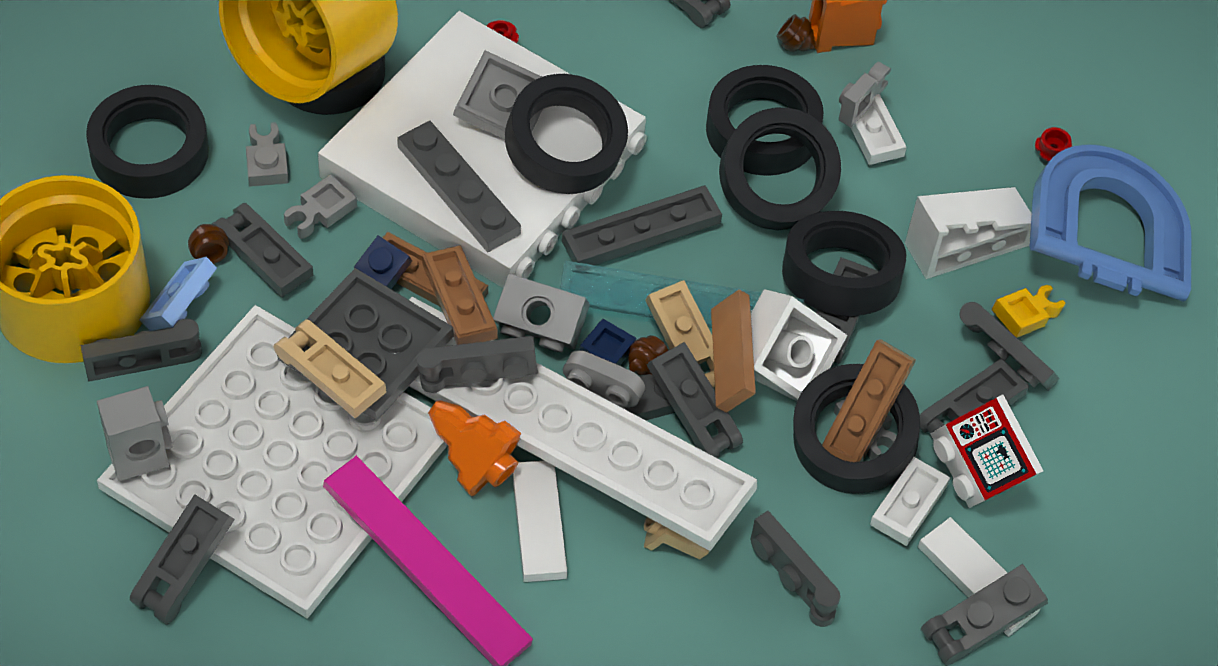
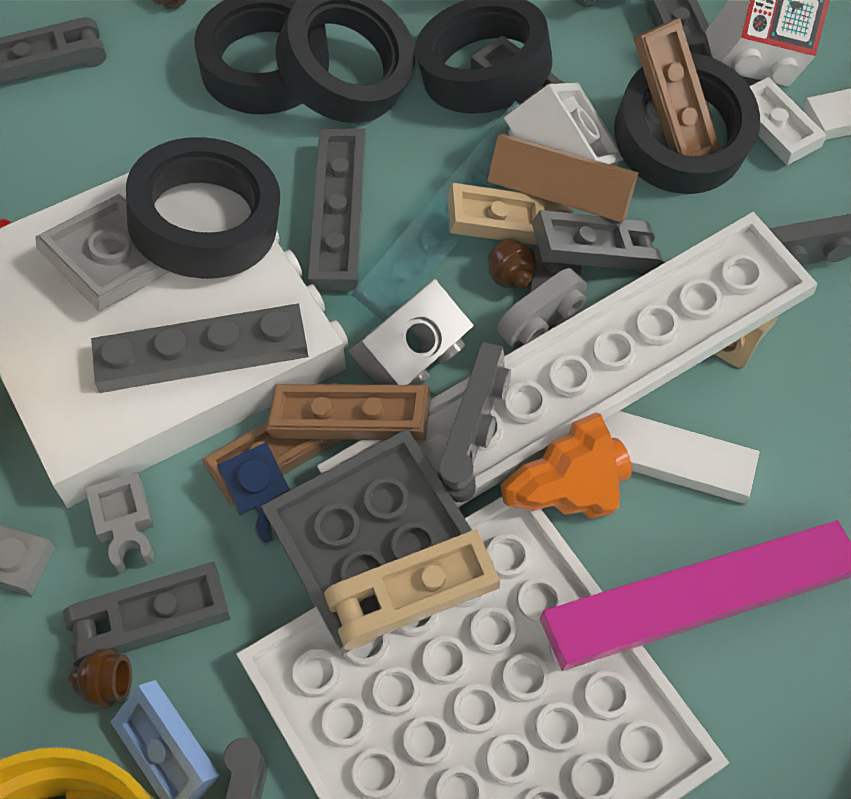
camera: 60 degrees left, 5 degrees up
(608, 342) = (481, 300): dark blue plate -> none

